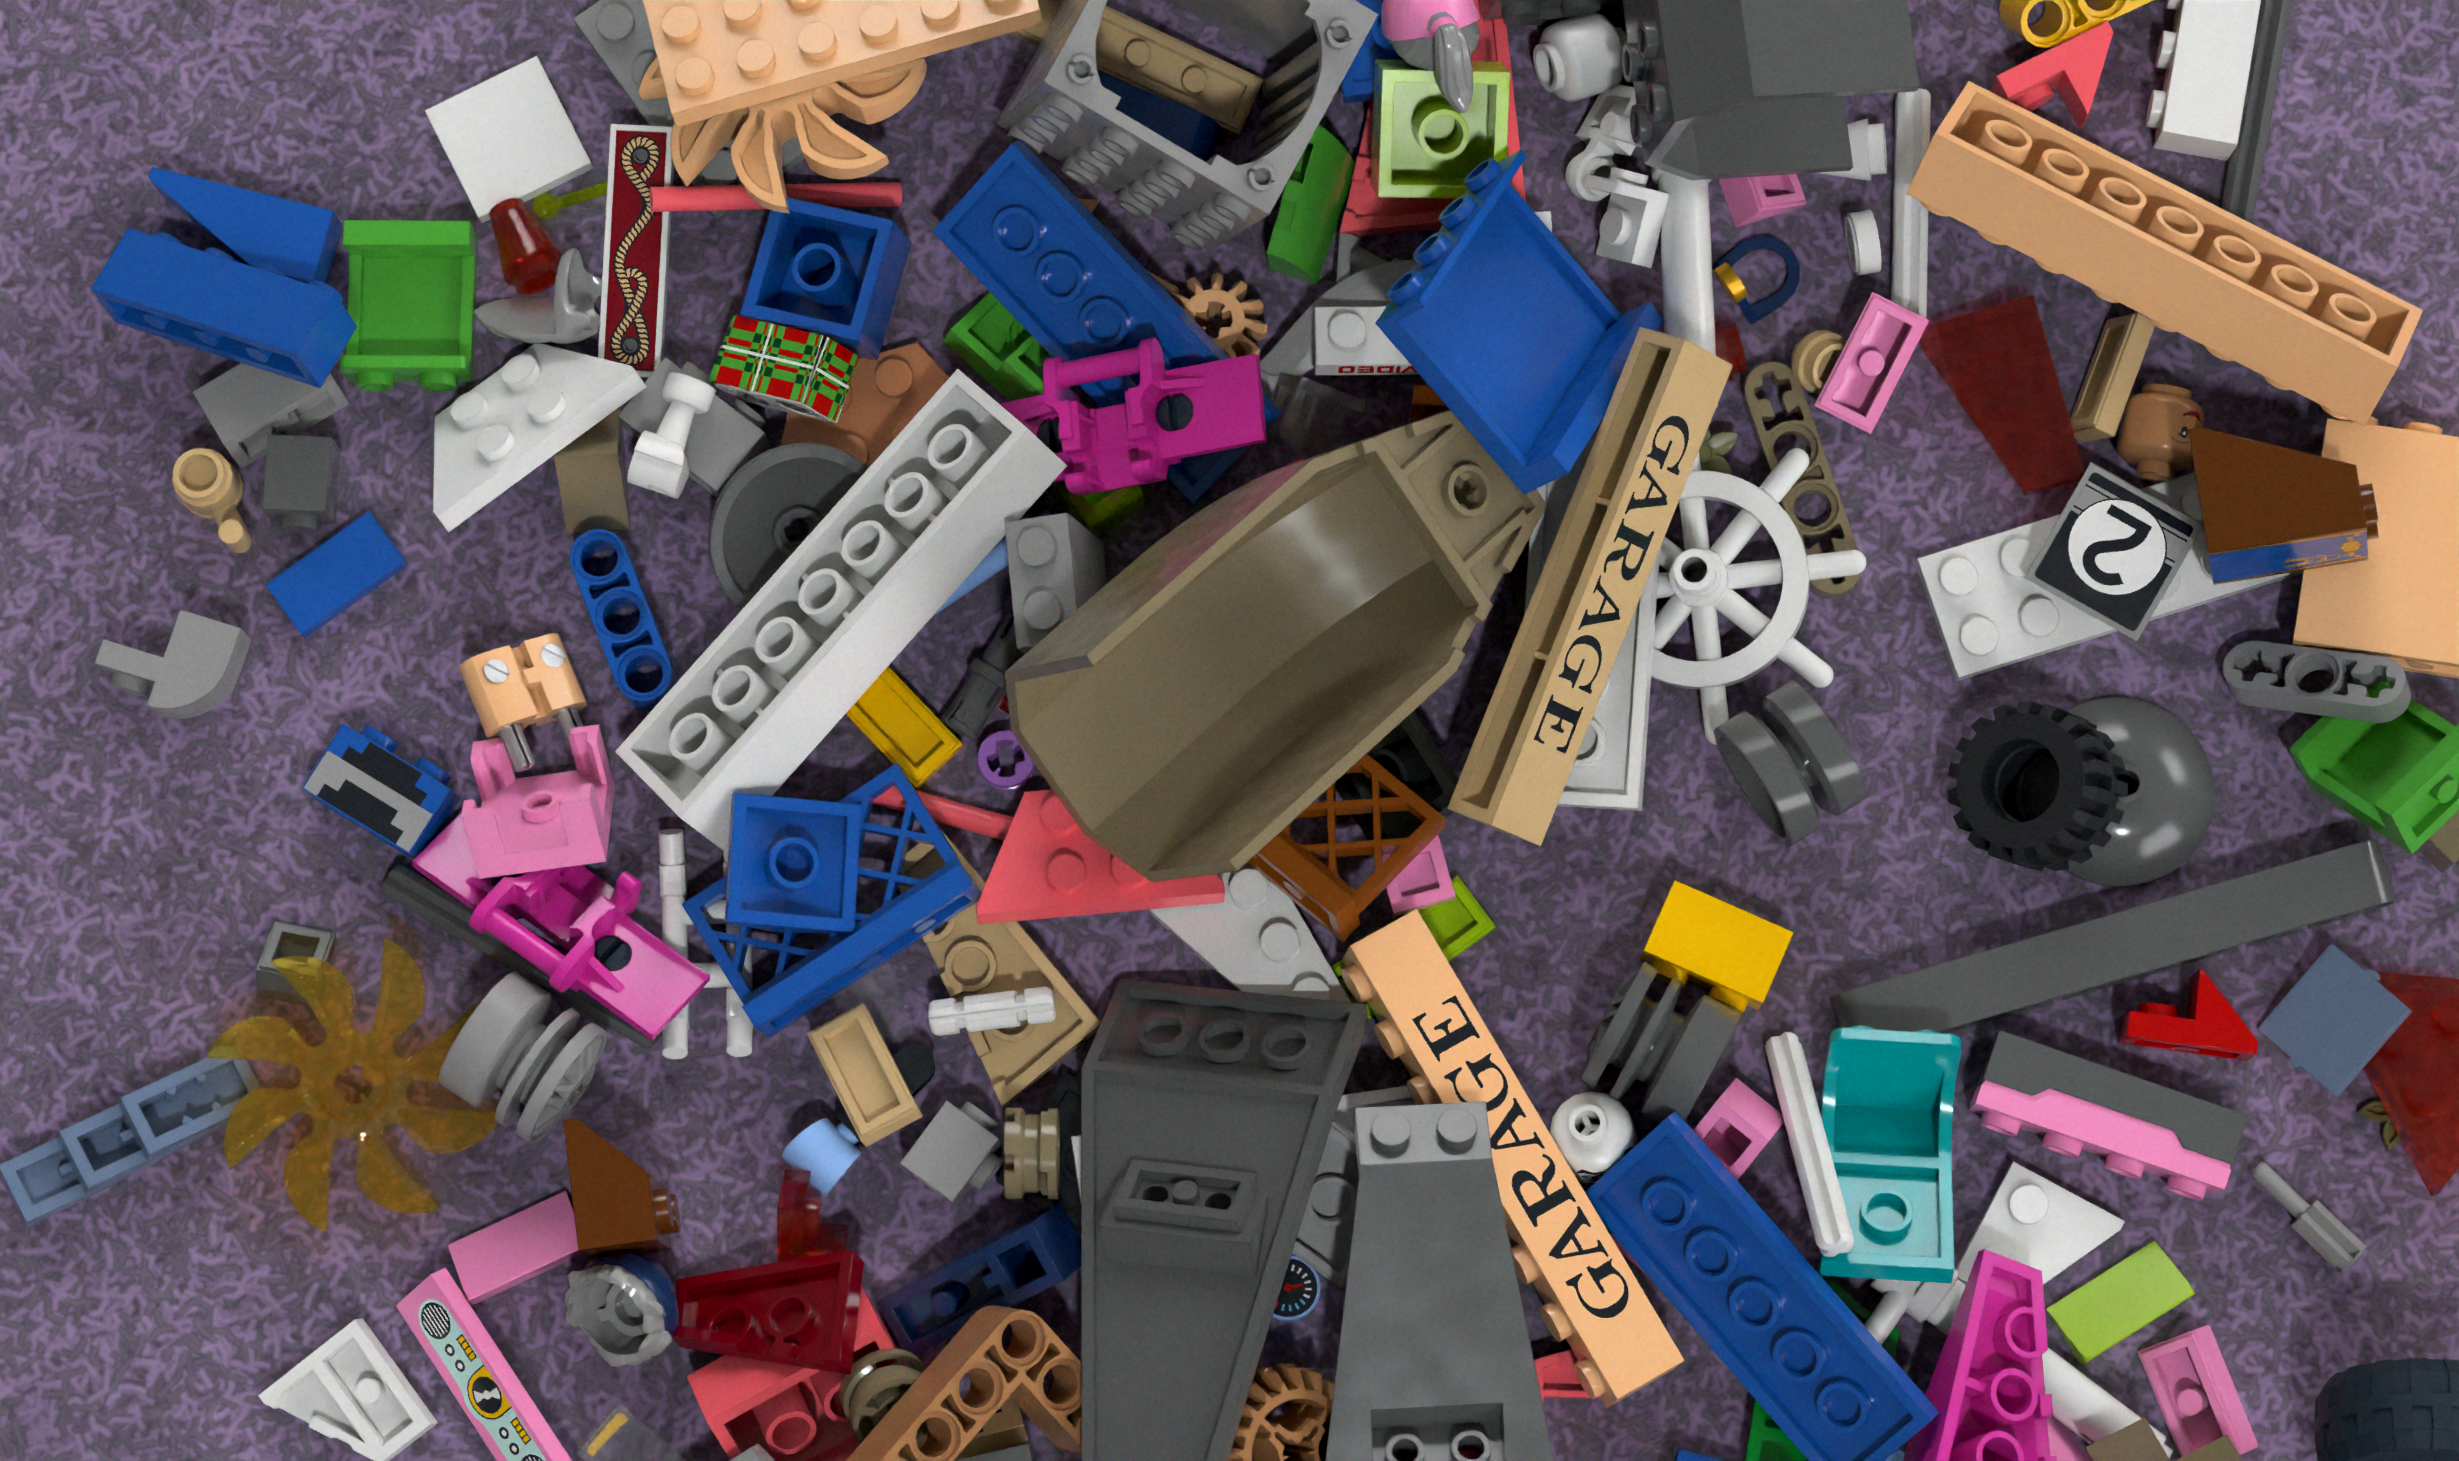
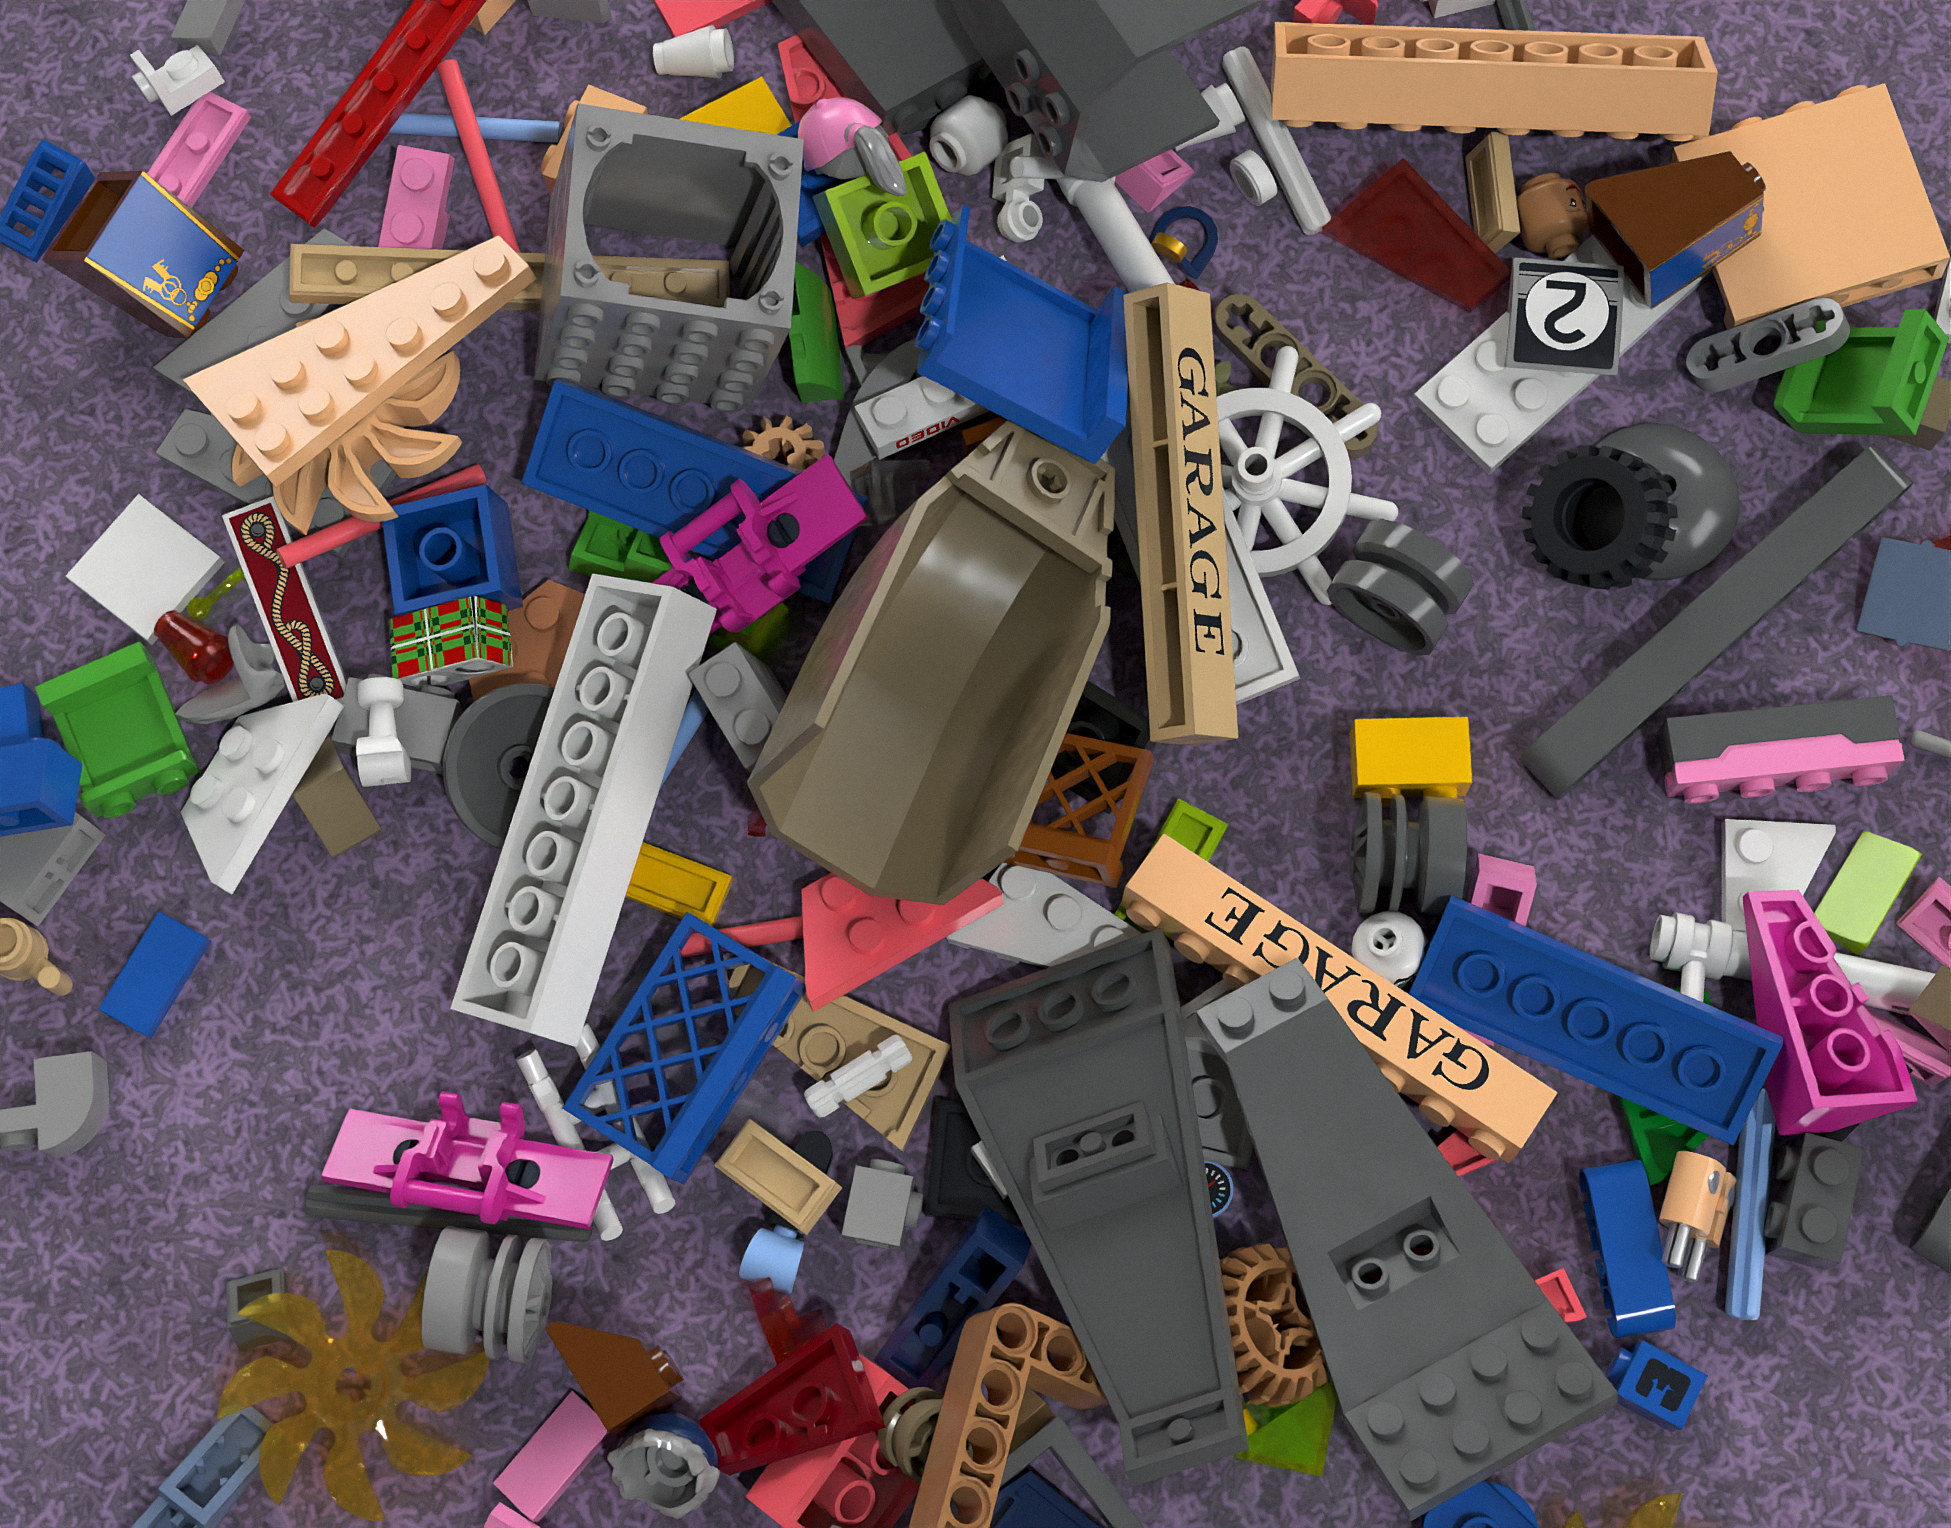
camera: 25 degrees left, 5 degrees down
(301, 482) = (91, 912): dark grey brick -> none
(381, 791) = (268, 1131): brick -> none
(522, 689) = (352, 993): light nougat piece -> none
(540, 818) = (413, 1091): bright pink panel -> none
(614, 592) = (395, 881): blue beam -> none
(792, 864) = (640, 1031): blue slope -> none
(984, 684) = (729, 816): dark grey pin -> none
(989, 751) = (791, 873): medium lavender bush -> none
(1031, 1153) = (946, 1175): dark tan wheel -> none
(1422, 882) = (1155, 815): bright pink tile -> none
(1632, 217) = (1066, 233): white bracket -> none
(1809, 1145) = (1567, 876): white axle -> none
(1815, 358) = (1267, 279): tan plate -> none
(1871, 362) = (1307, 261): bright pink slope -> none
(1890, 1140) = (1628, 856): teal bracket -> none
(2208, 1029) = (1819, 646): red slope -> none

